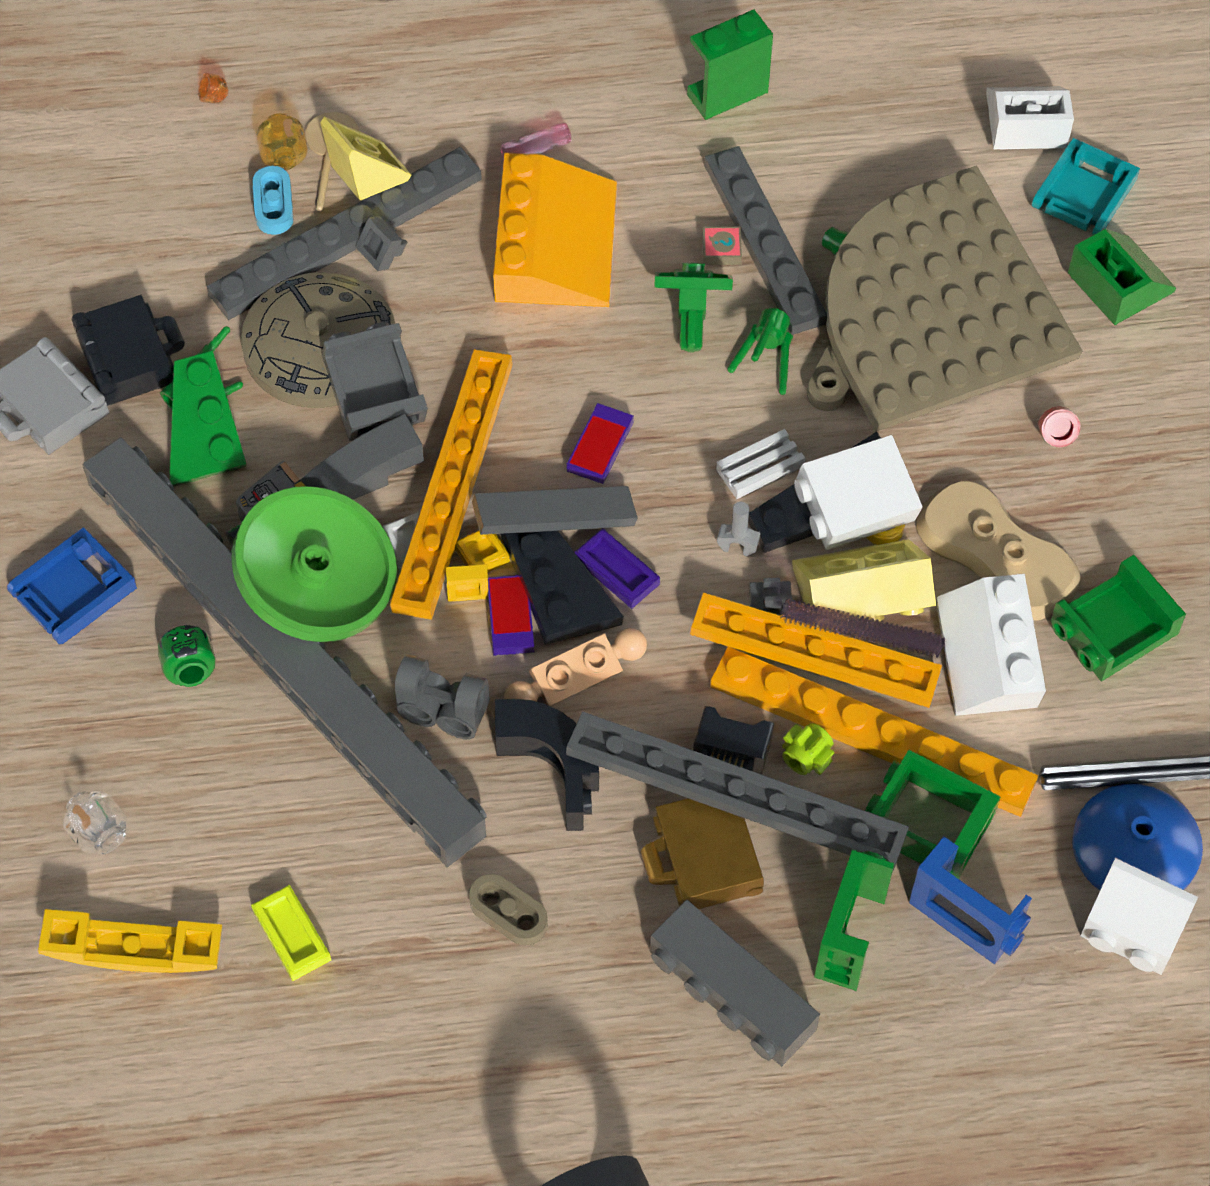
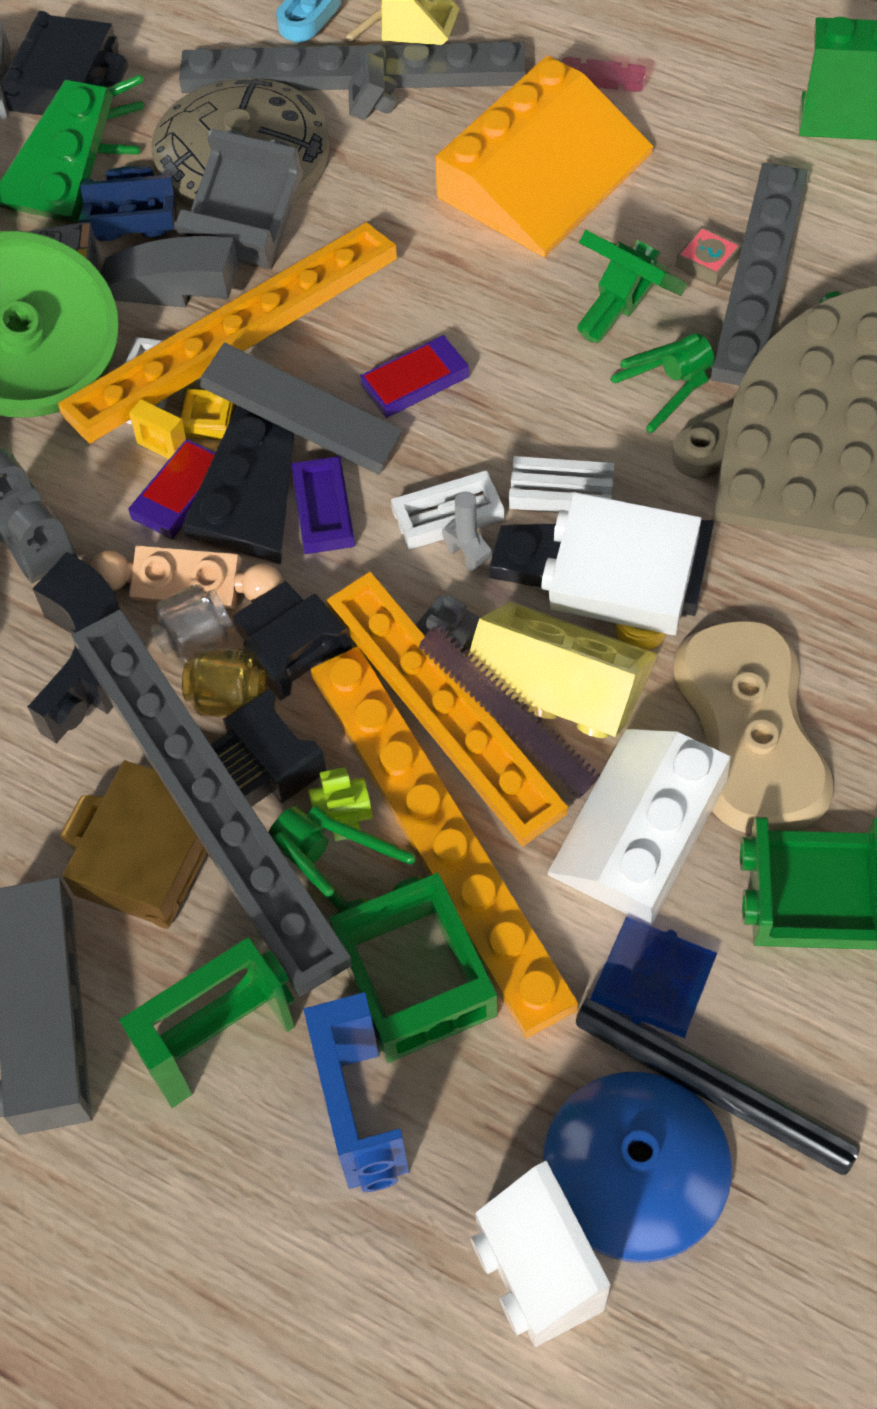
camera: 40 degrees right, 0 degrees up
(284, 428) = (129, 203): none -> dark blue slope
(614, 694) = (191, 622): none -> clear head
(670, 718) = (221, 680): none -> clear yellow head
(678, 667) = (290, 635): none -> black piece
(683, 548) = (428, 526): none -> white tile
(811, 779) = (303, 843): none -> green plant
(1067, 732) = (654, 977): none -> clear blue piece

